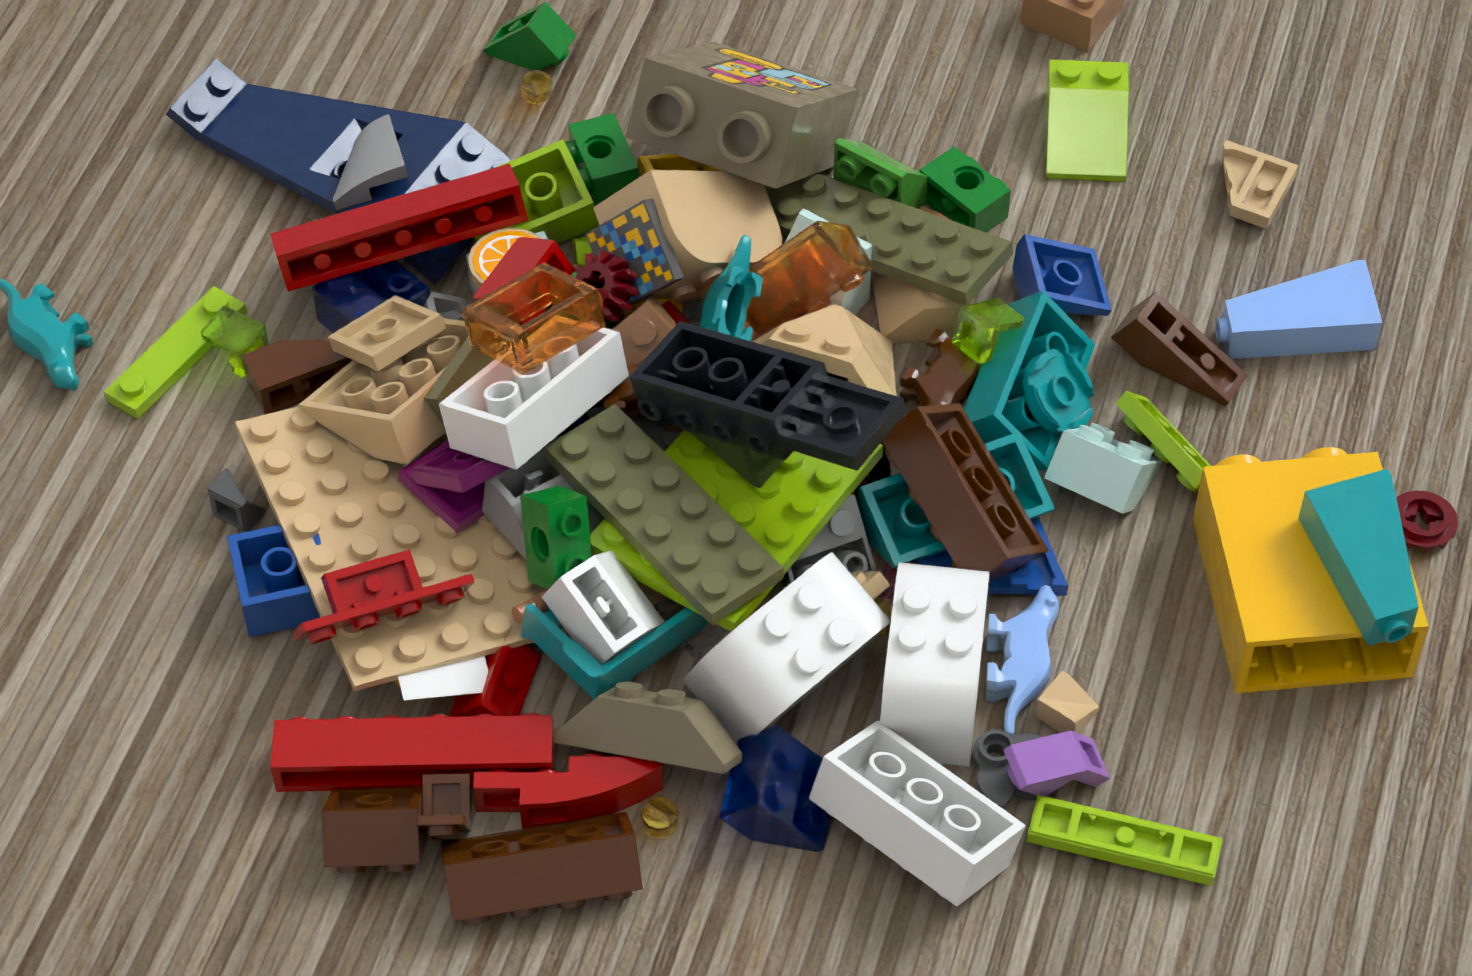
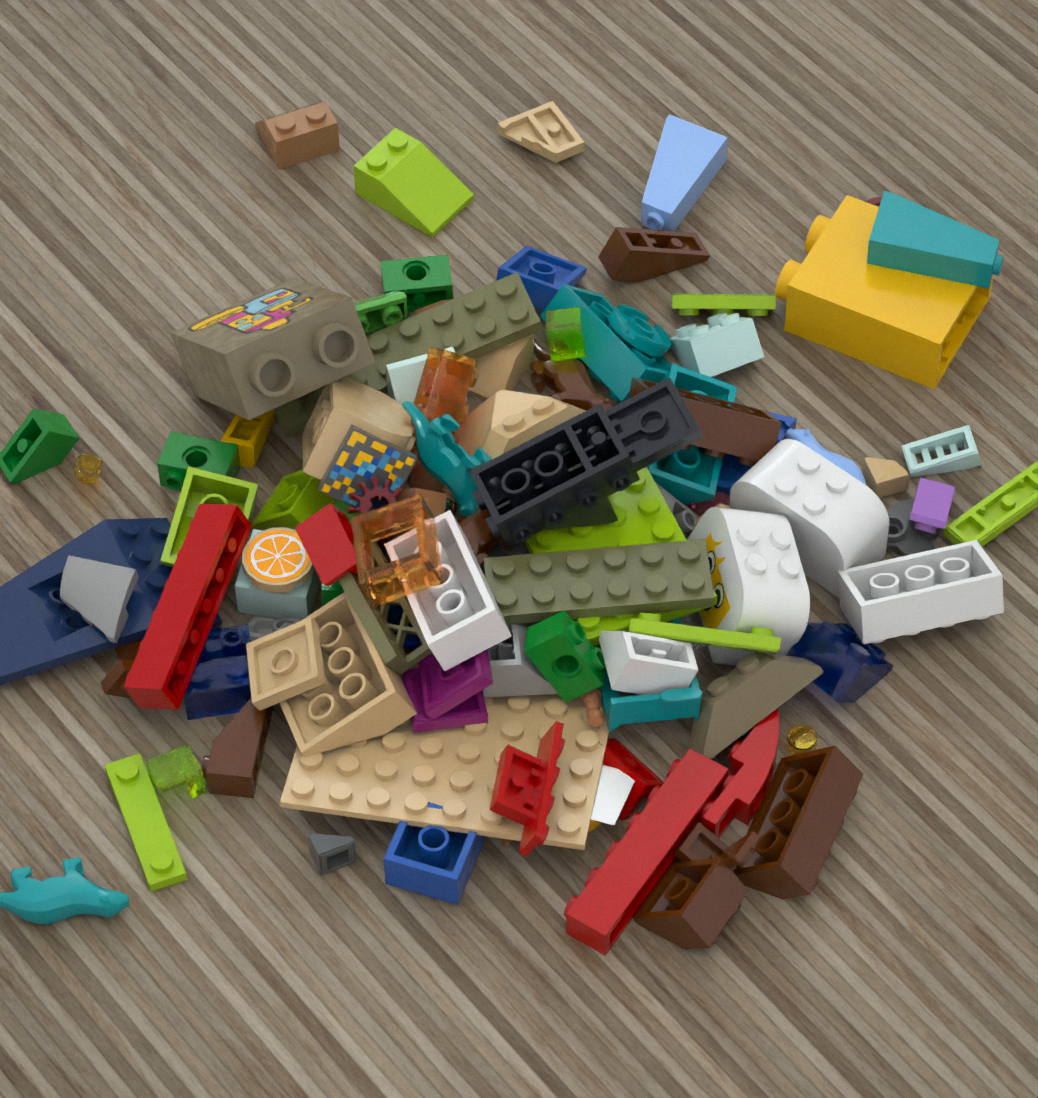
camera: 55 degrees left, 0 degrees up
(697, 685) = (758, 640): none -> lime plate
(1166, 764) = (950, 440): none -> light aqua slope

